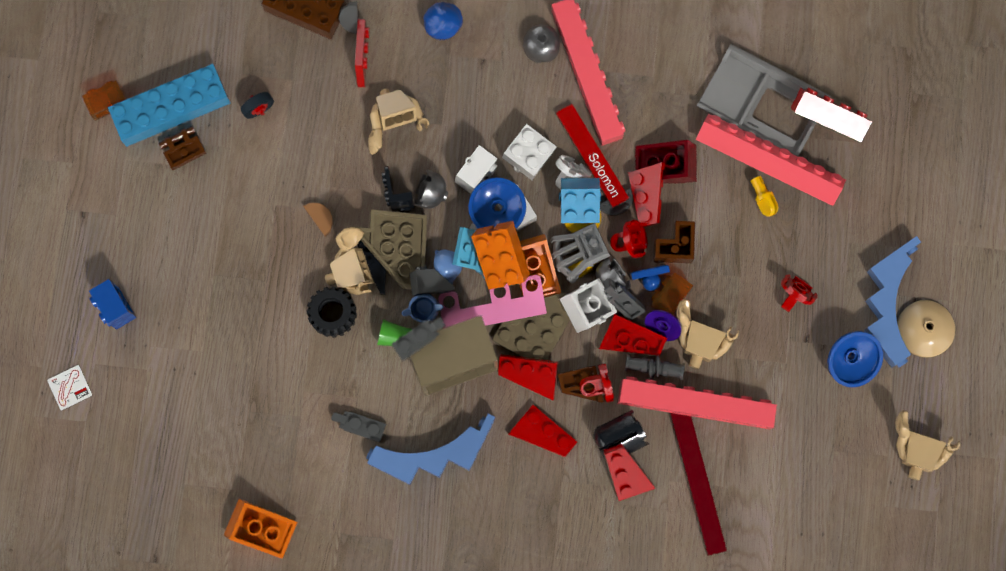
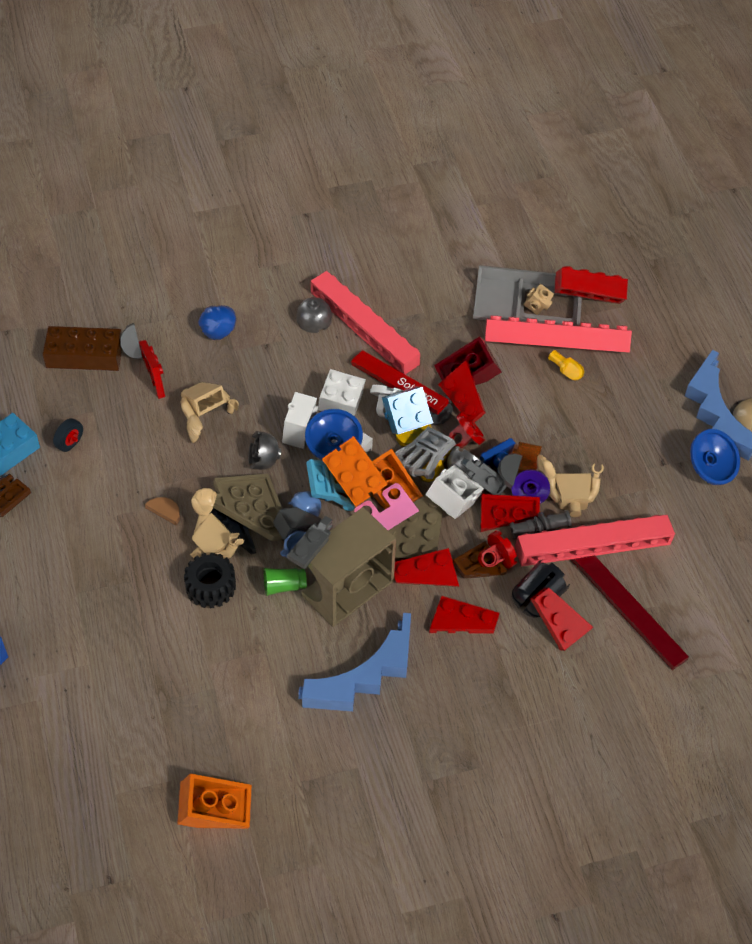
camera: 25 degrees left, 25 degrees down
(360, 425) = (278, 673): dark grey hinge -> none
(399, 202) = (232, 465): black bracket -> none
(648, 301) = (508, 469): none -> dark grey tile
(678, 249) = (511, 423): reddish brown brick -> none
(772, 108) = (538, 299): none -> tan brick
(798, 291) = (635, 422): red tile -> none

